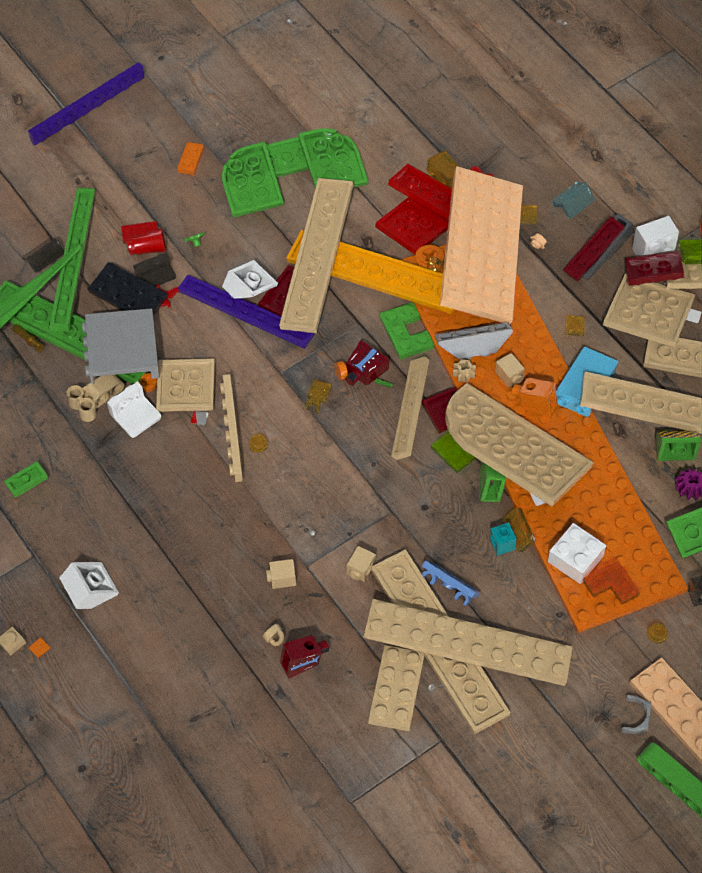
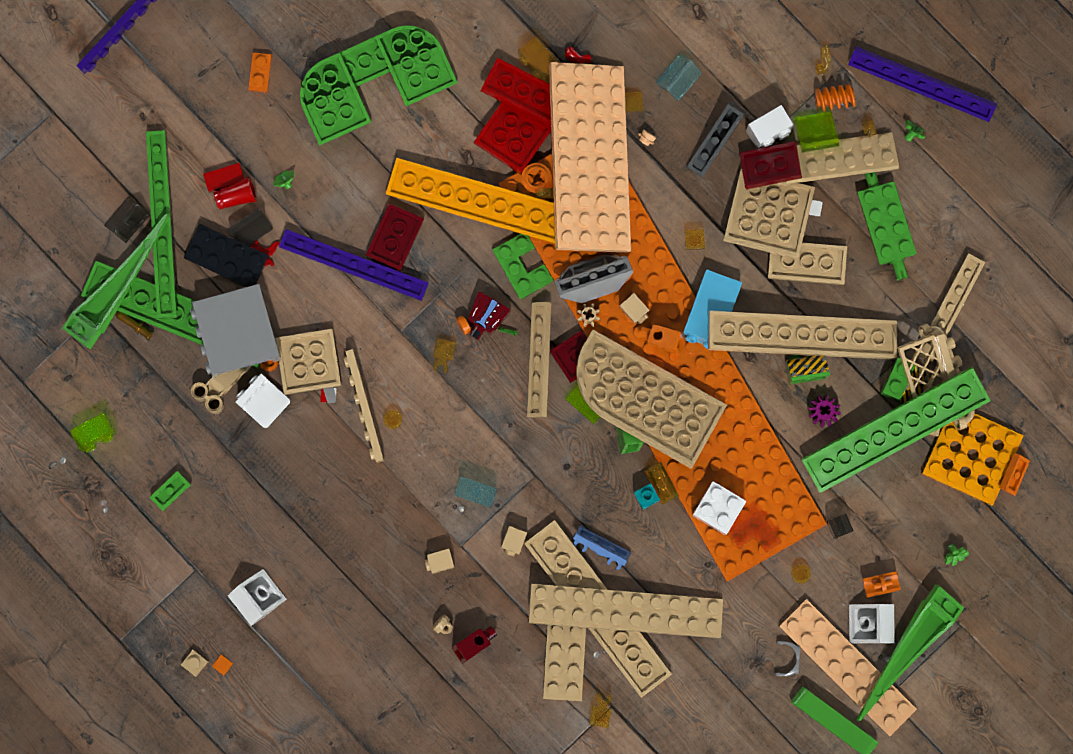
camera: 10 degrees left, 25 degrees up
(248, 281) = (354, 236): white slope -> none
(316, 256) = (418, 191): tan plate -> none
(330, 514) = (475, 492): none -> clear light blue panel
(428, 743) = (600, 714): none -> clear yellow plate
(593, 249) = (706, 145): dark red tile -> none

